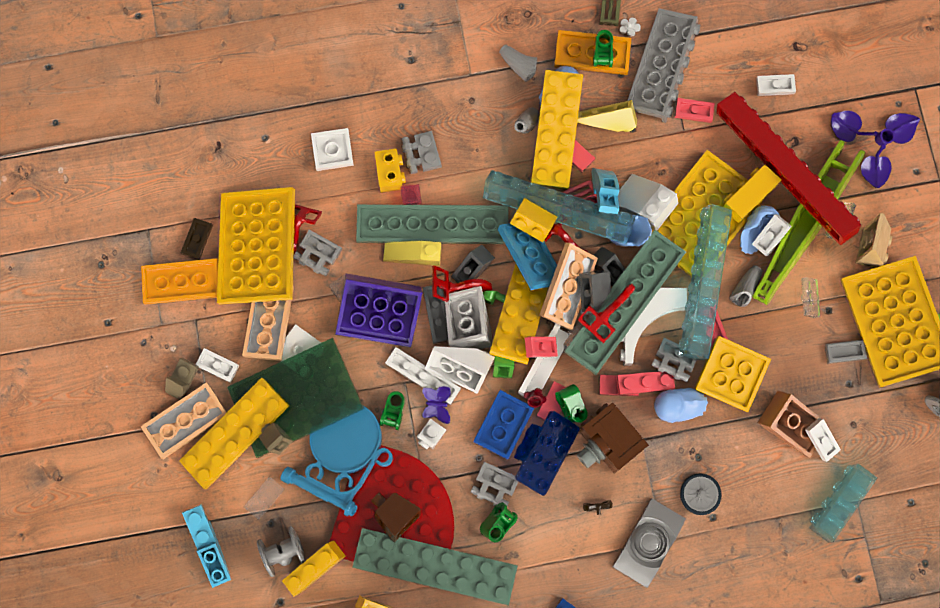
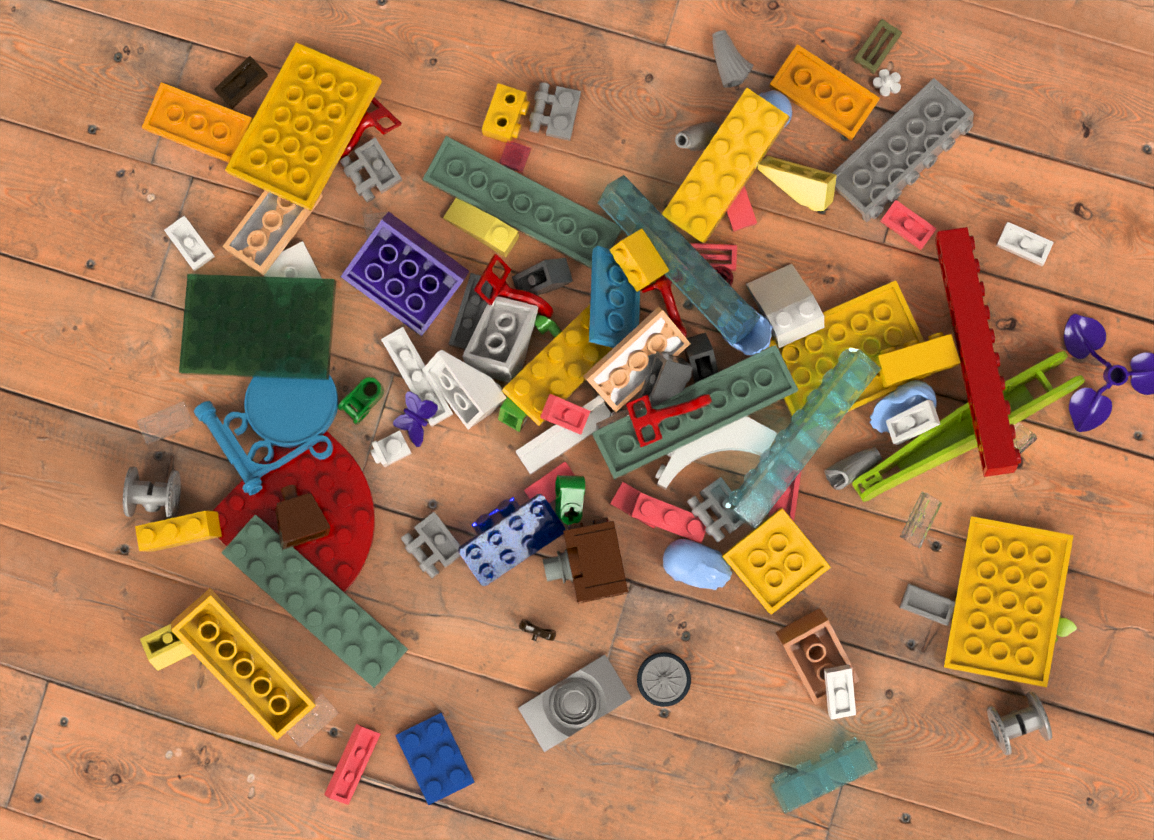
camera: 35 degrees right, 5 degrees up
(181, 379) = (140, 238): dark tan slope -> none
(184, 420) = (120, 288): piece -> none
(207, 545) = (75, 443): medium azure slope -> none
(233, 433) = (168, 331): yellow plate -> none
(274, 438) = (208, 362): dark tan slope -> none
(332, 149) = (452, 54): white plate -> none
(499, 522) = (414, 588): green piece -> none
(503, 425) = (480, 481): blue plate -> none
(535, 398) = (531, 469): dark red plate -> none
(603, 52) = (834, 100): green piece -> none
(607, 190) = (742, 268): medium azure slope -> none
(874, 243) = (1033, 496): tan slope -> none

